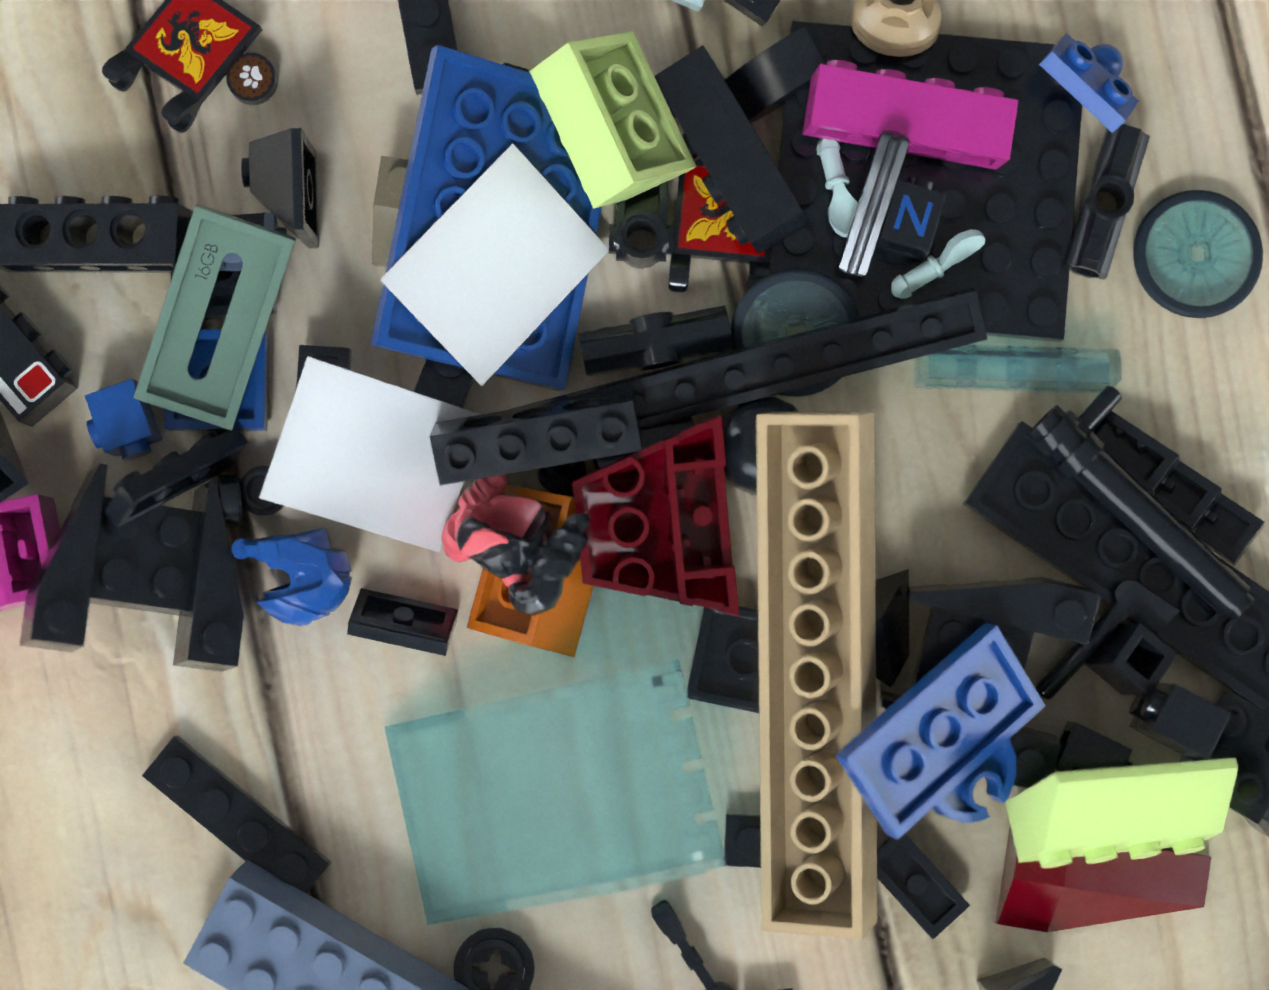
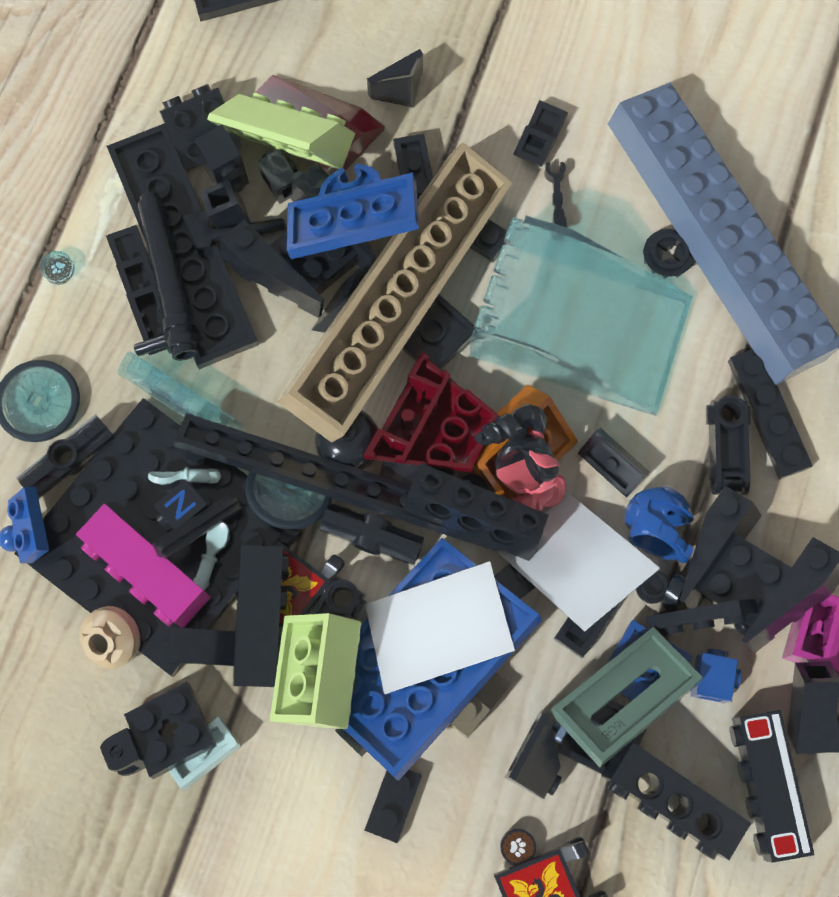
camera: 150 degrees left, 10 degrees down
(264, 735) = (729, 445): none -> black piece

